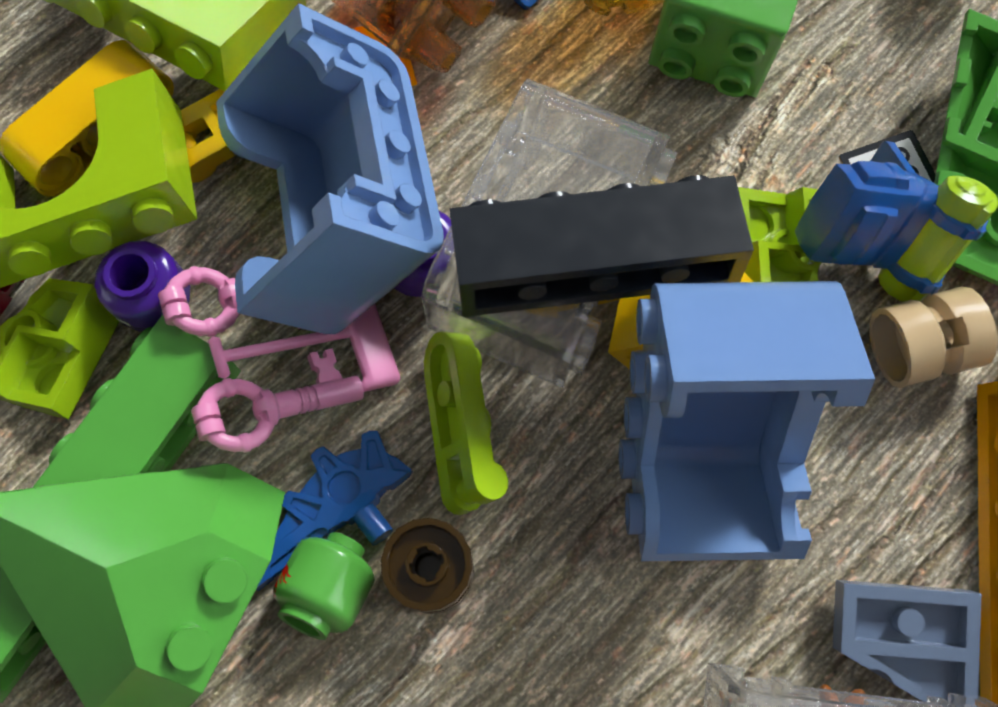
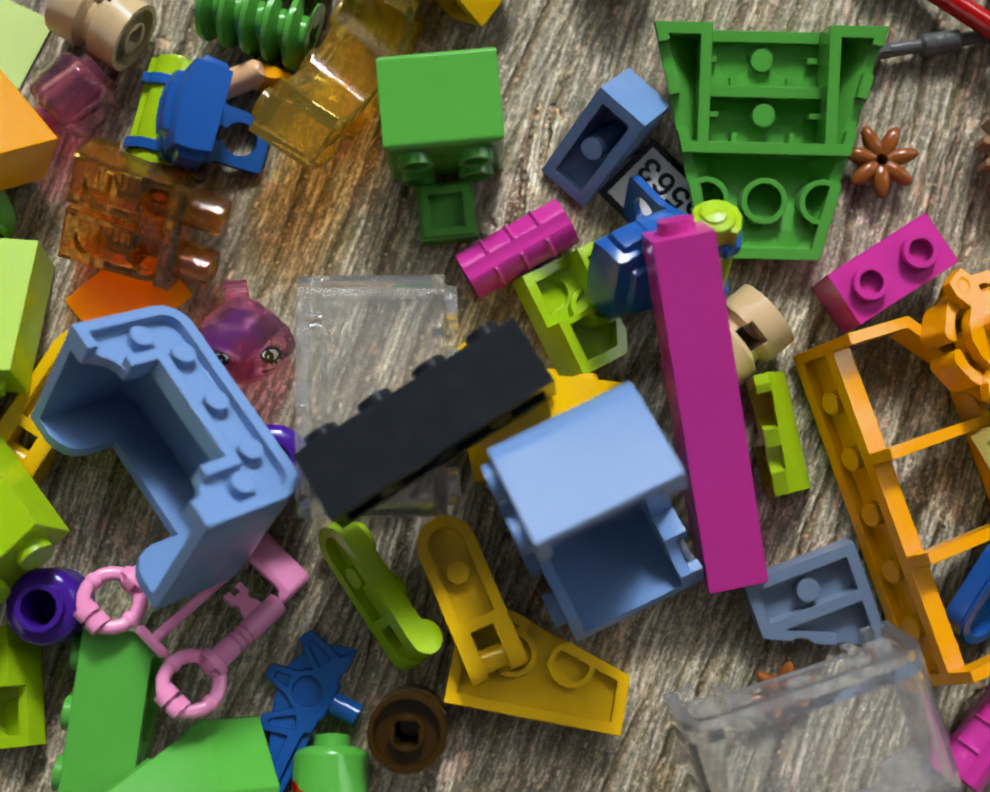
camera: 25 degrees left, 10 degrees up
(453, 126) = (246, 335): none -> clear pink piece
(550, 464) = (468, 597): none -> yellow plate
(576, 576) = (555, 686): none -> yellow wing
(687, 110) = (447, 213): none -> bright green tile
(756, 161) = (517, 248): none -> dark pink axle
(871, 100) = (605, 135): none -> medium blue slope
(901, 325) = (705, 401): none -> dark pink brick
(932, 465) = (779, 446): none -> lime slope

